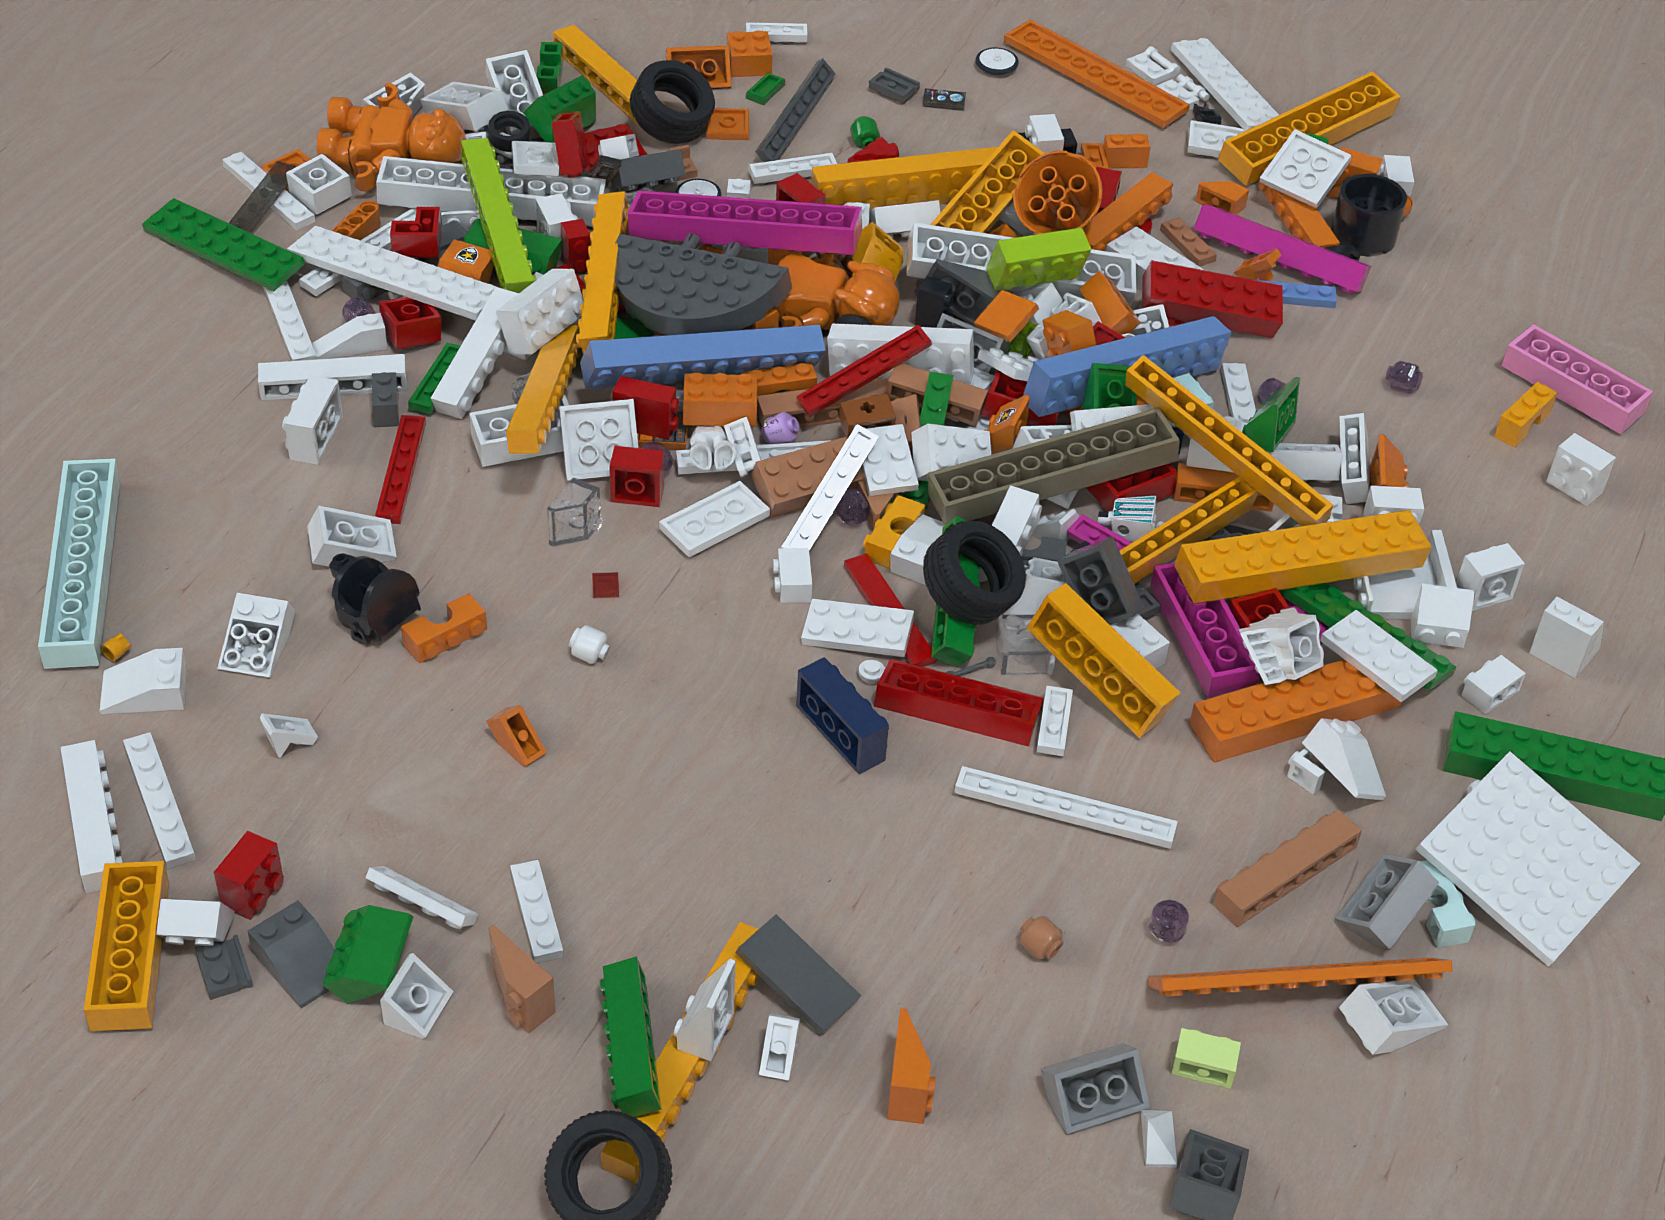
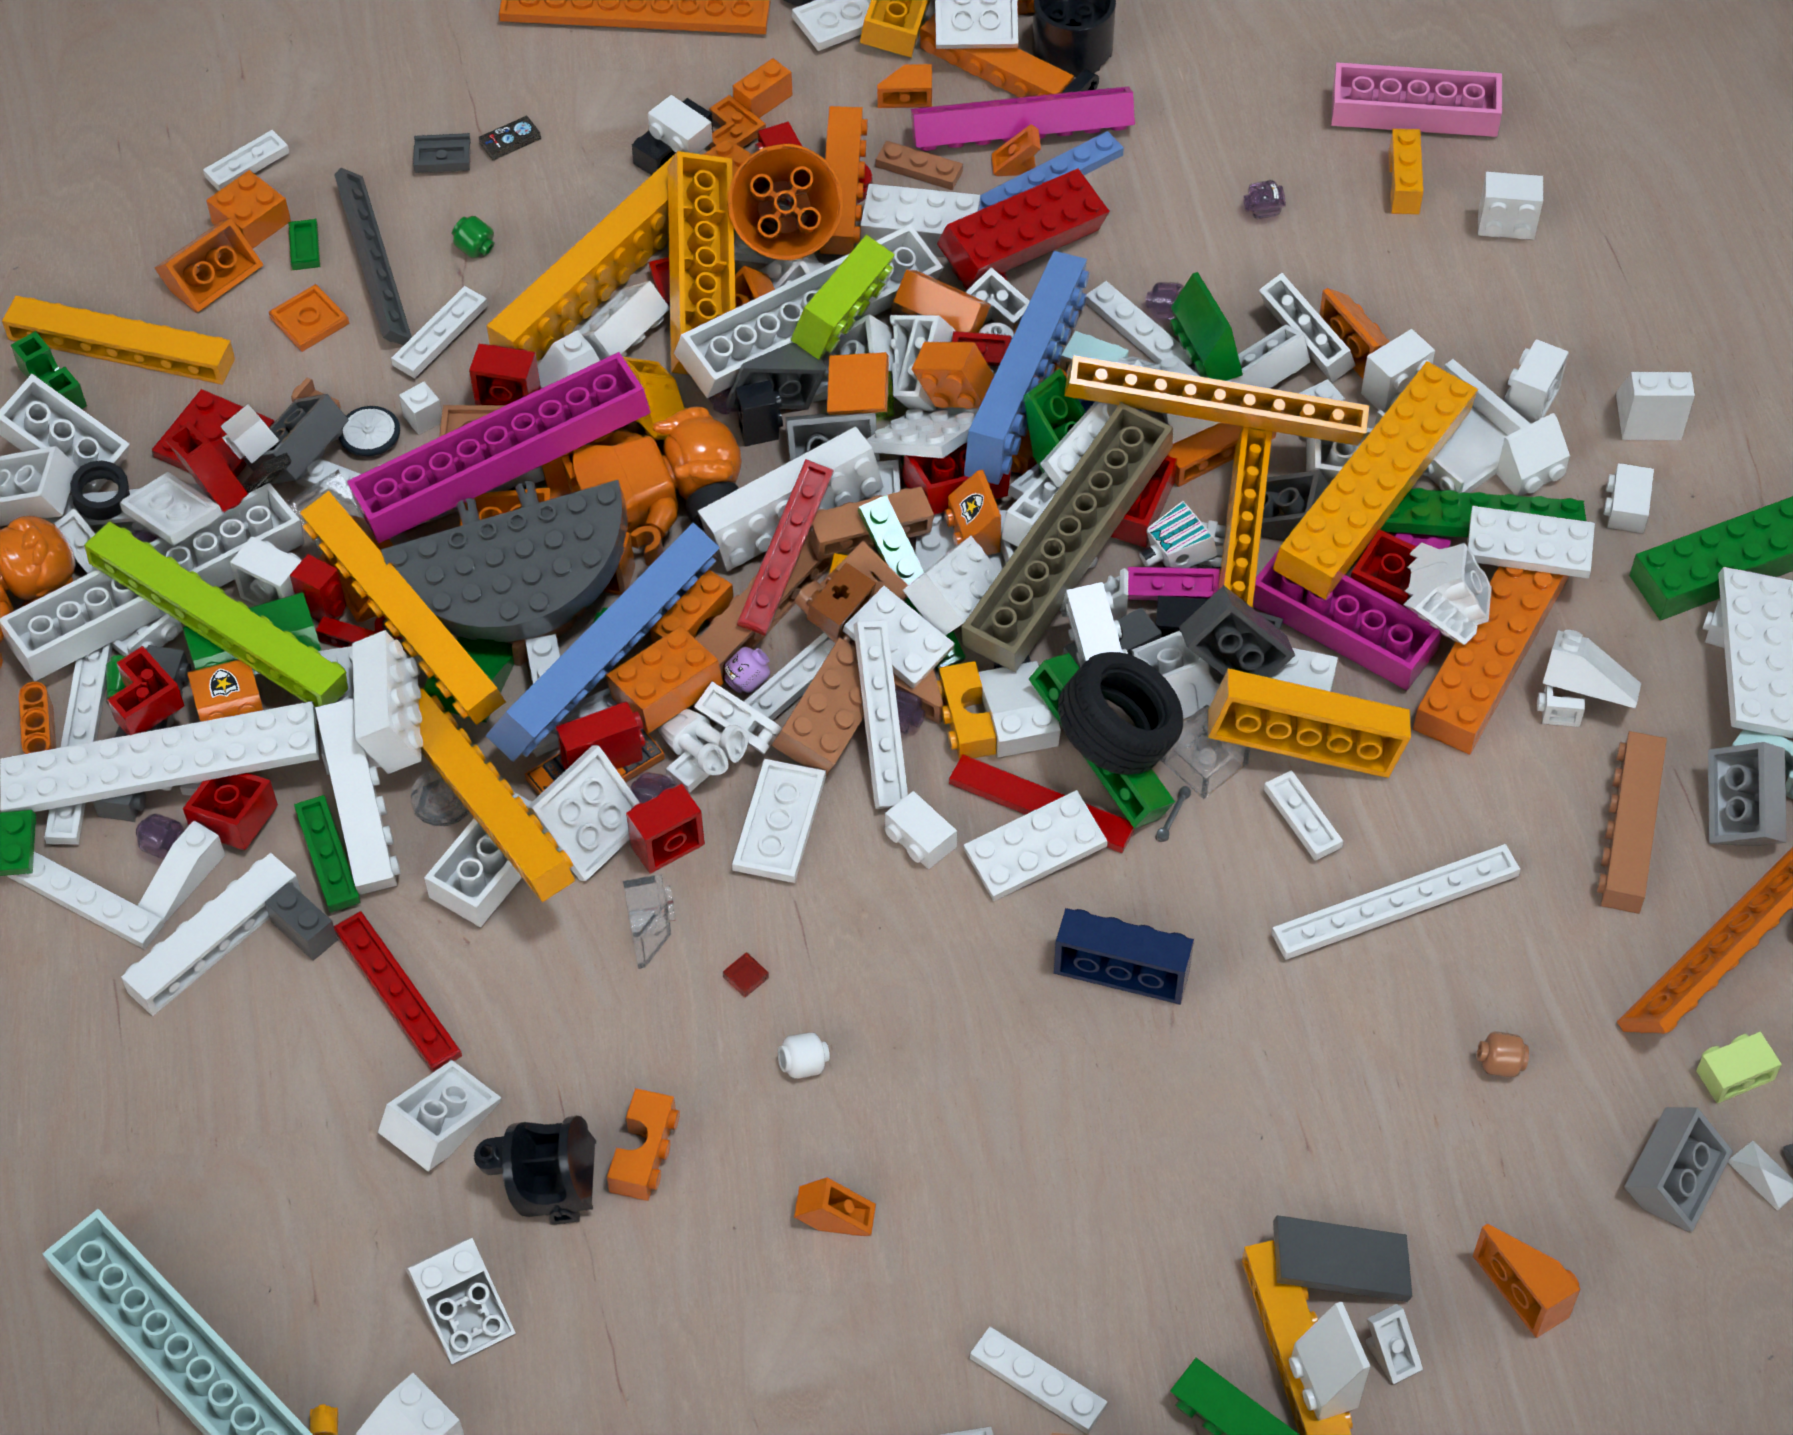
camera: 35 degrees left, 10 degrees up
(287, 730) = (610, 1380): white slope -> none
(313, 419) = (255, 1003): white brick -> none
(571, 97) = (131, 422): green slope -> none
(662, 121) = (229, 360): black tyre -> none
(871, 671) = (1091, 884): white plate -> none
(876, 150) = (512, 258): red rock -> none
(958, 702) = (1199, 858): red arch -> none
(997, 61) = (519, 52): white wheel -> none
(1169, 921) = (1591, 954): clear purple head -> none

